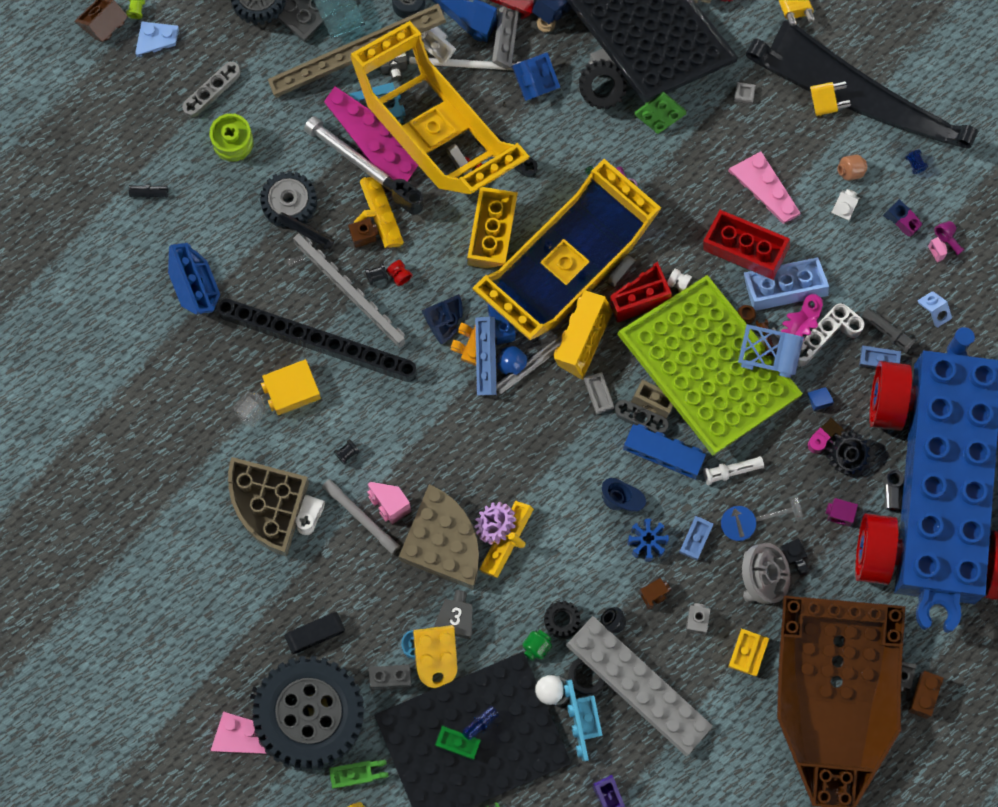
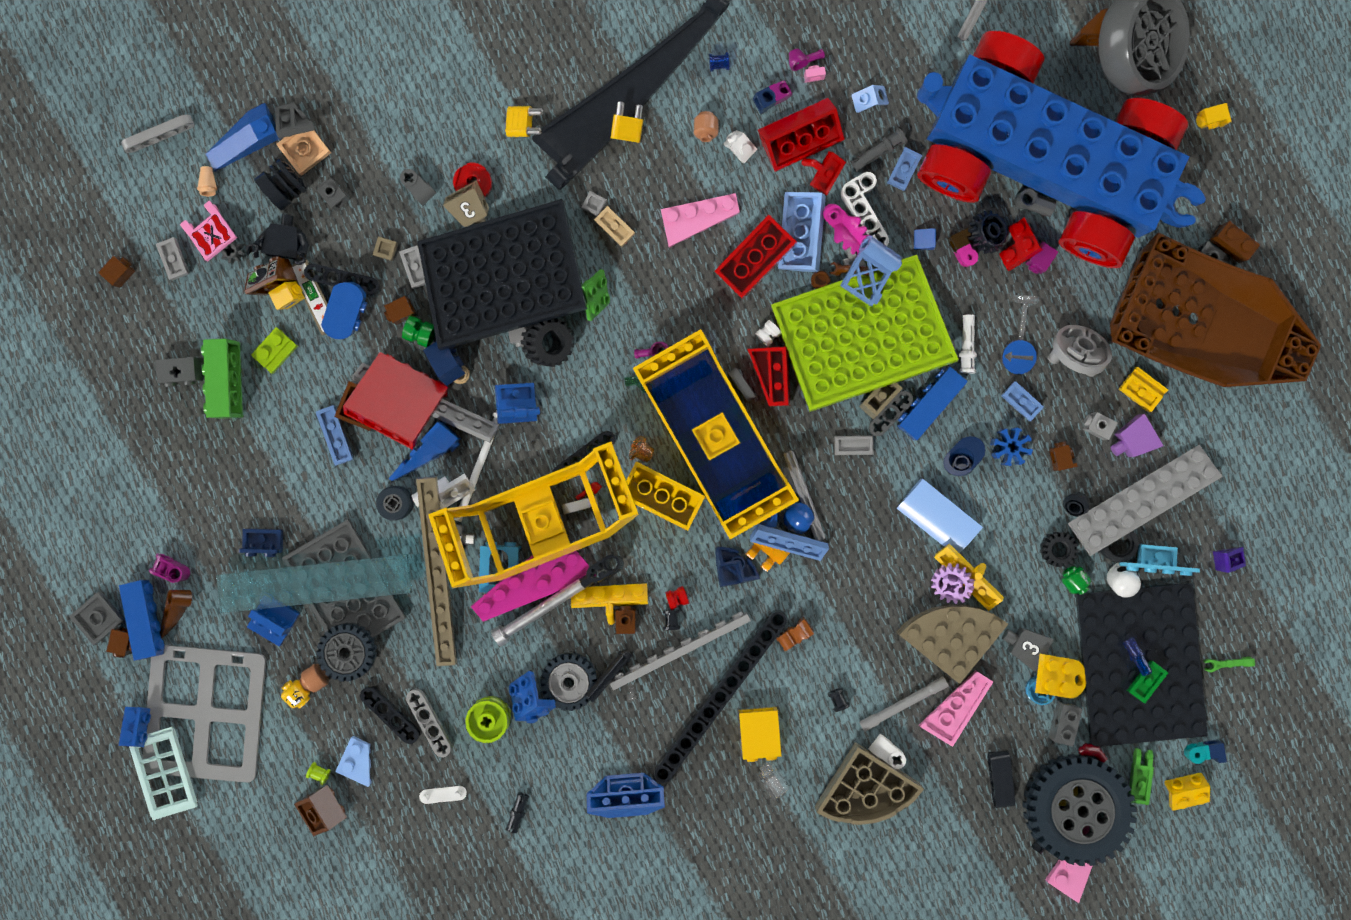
camera: 65 degrees left, 15 degrees up
(145, 122) = (443, 794): none -> white piece
(205, 52) = (392, 712): none -> black beam
(253, 167) = (526, 701): none -> blue bracket
(369, 568) = (956, 710): none -> bright pink wing
(370, 715) = (1091, 750): none -> dark red arm
(391, 501) = (903, 675): bright pink slope -> none
(395, 389) = (795, 635): none -> dark orange leg
(528, 199) = (641, 449): none -> clear orange piece
(556, 493) = (939, 516): none -> light blue slope
(583, 334) = (796, 443): yellow slope -> none
(697, 659) = (1136, 437): none -> medium lavender torso
(730, 115) = (614, 226): none -> tan plate
(795, 554) = (1064, 314): black plate -> none
(849, 490) = (1025, 245): none -> red plate
(850, 288) = (826, 172): none -> red plate
(876, 254) = (801, 134): none -> red slope

